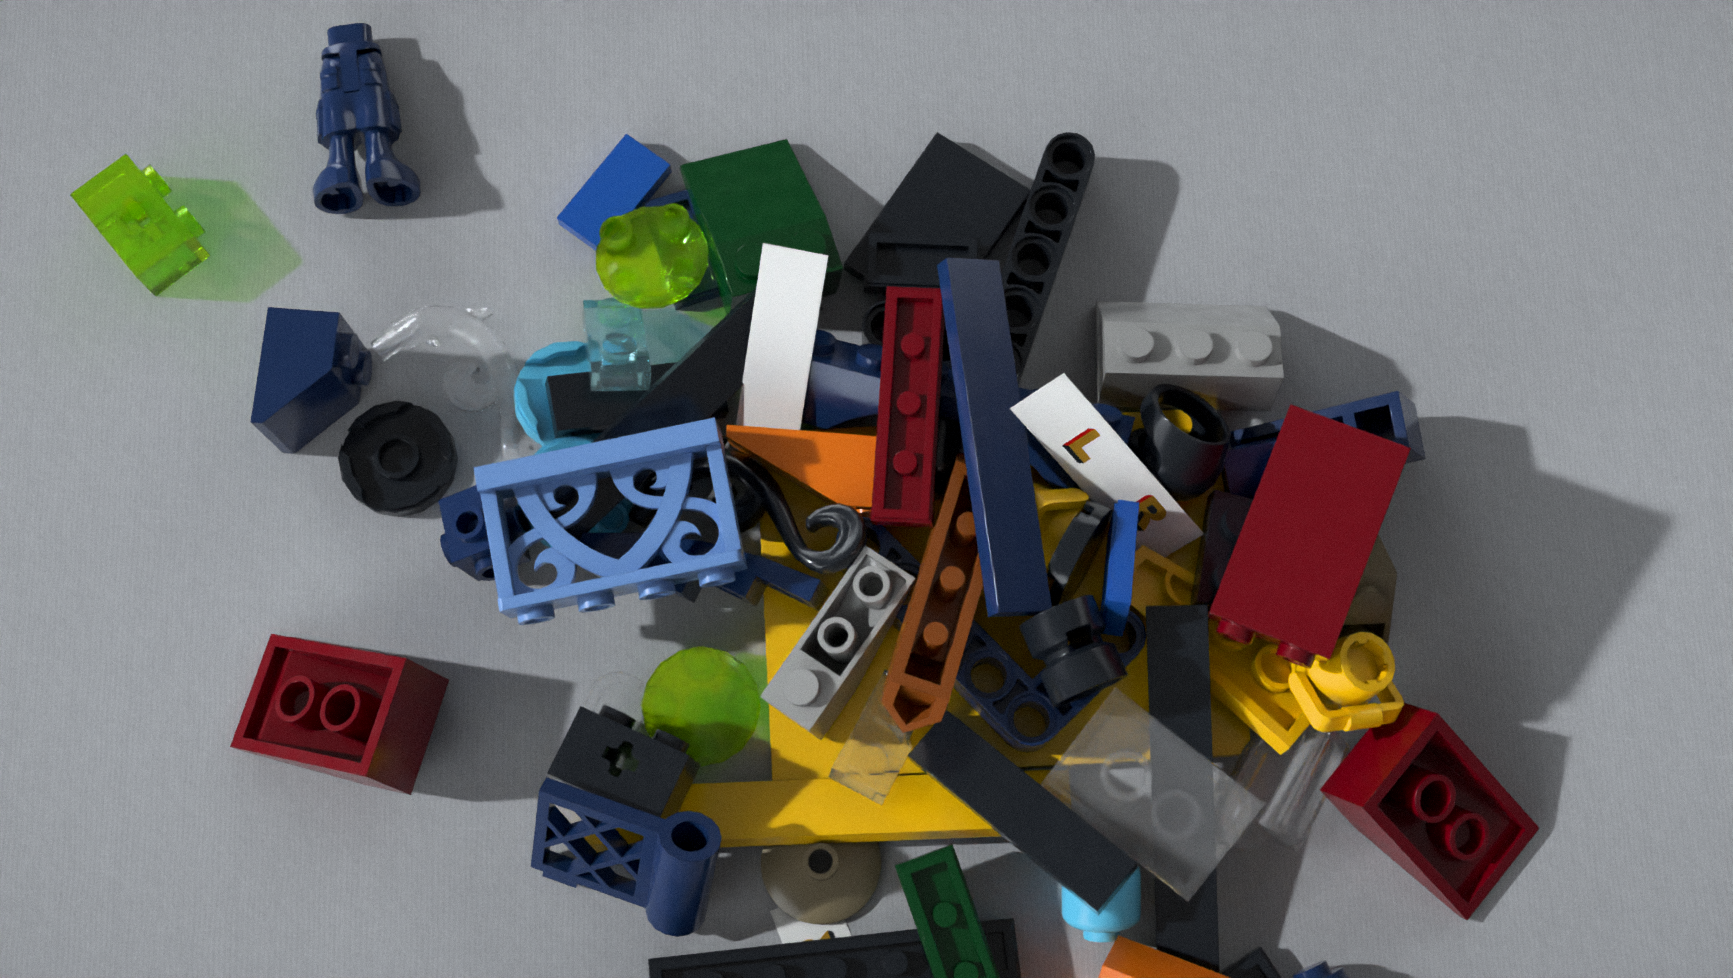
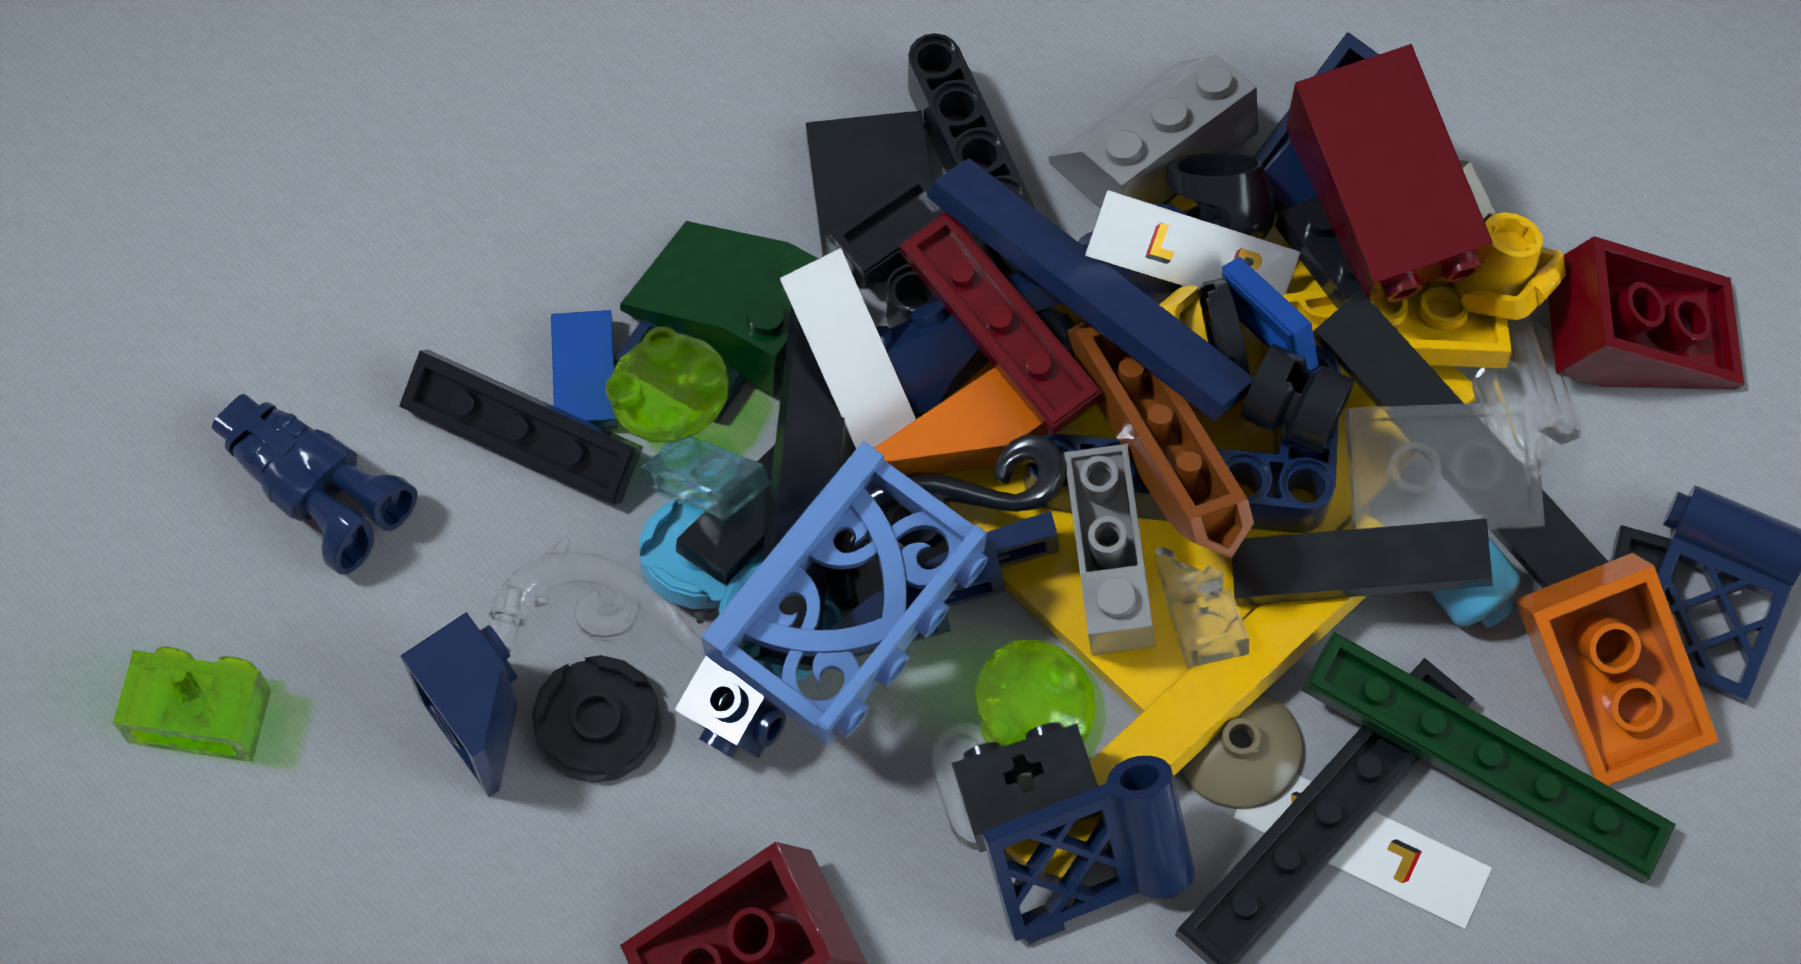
camera: 40 degrees left, 10 degrees down
(531, 202) = (521, 426): none -> black tile

